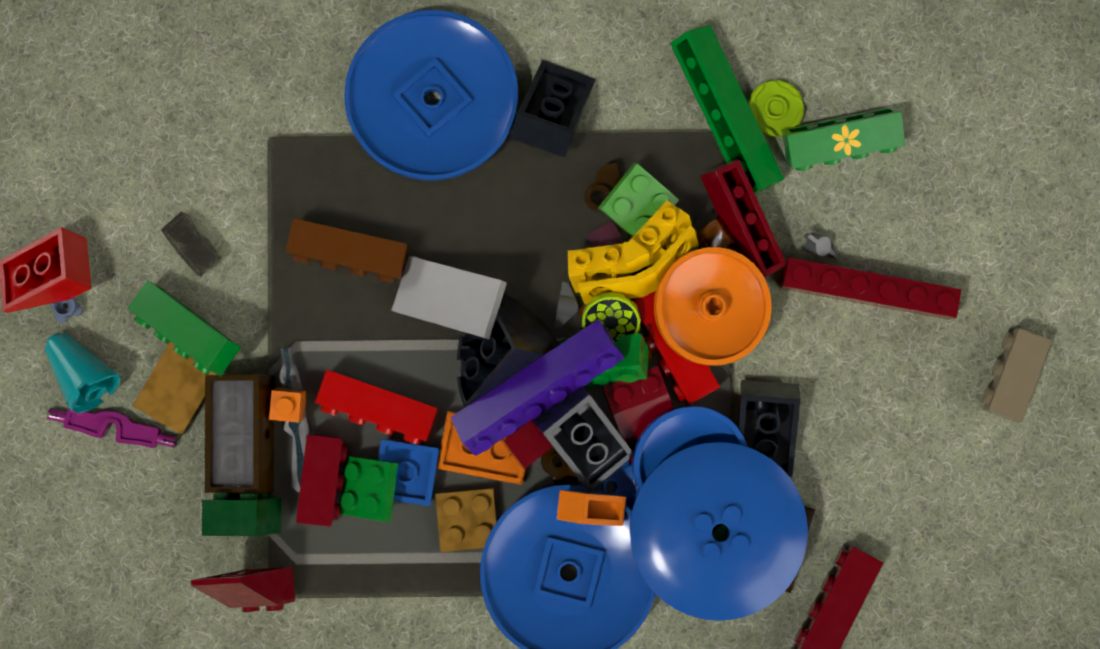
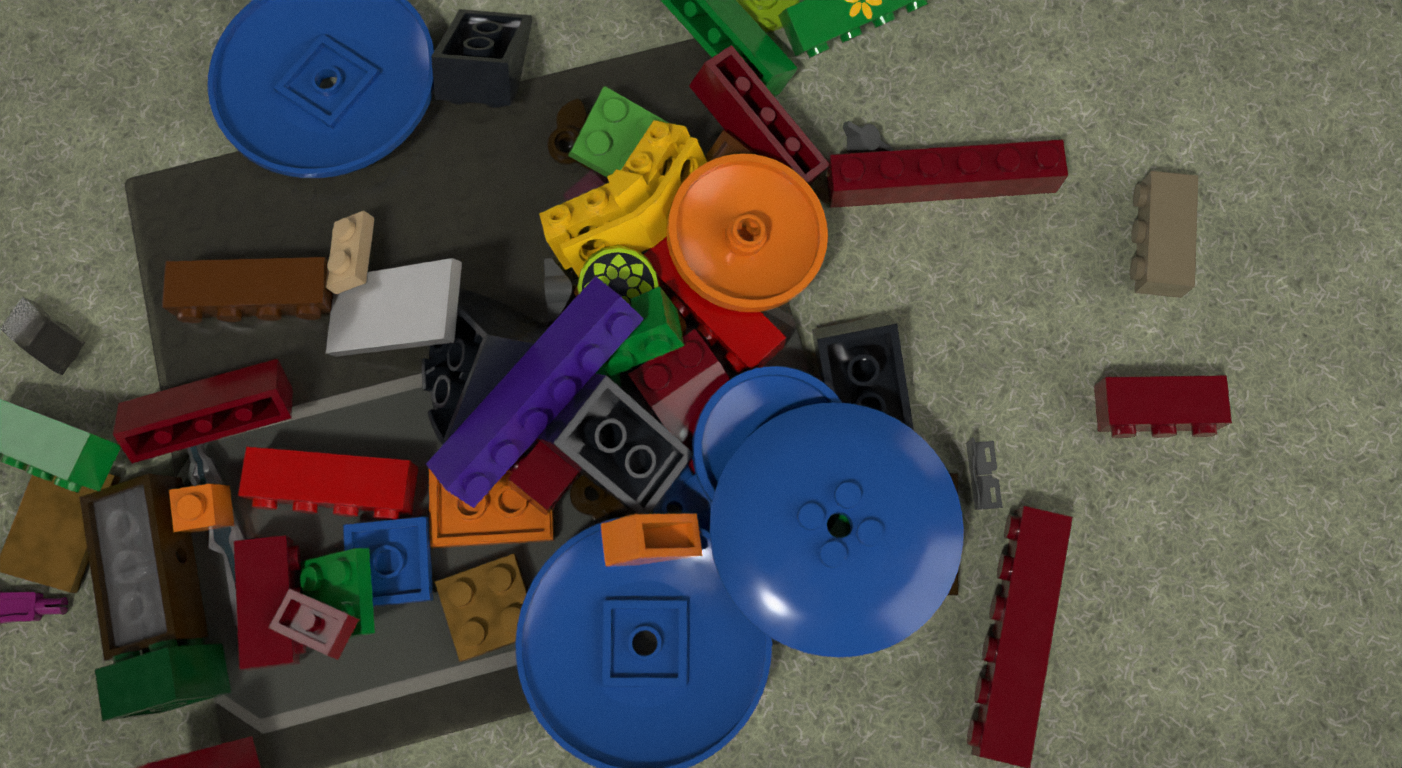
camera: 15 degrees left, 10 degrees down
(300, 334) = (203, 411): none -> dark red brick
(353, 507) = (314, 624): none -> plate
(424, 242) = (349, 252): none -> tan plate
(833, 498) = (982, 486): none -> dark grey piece
(972, 499) = (1162, 405): none -> dark red brick

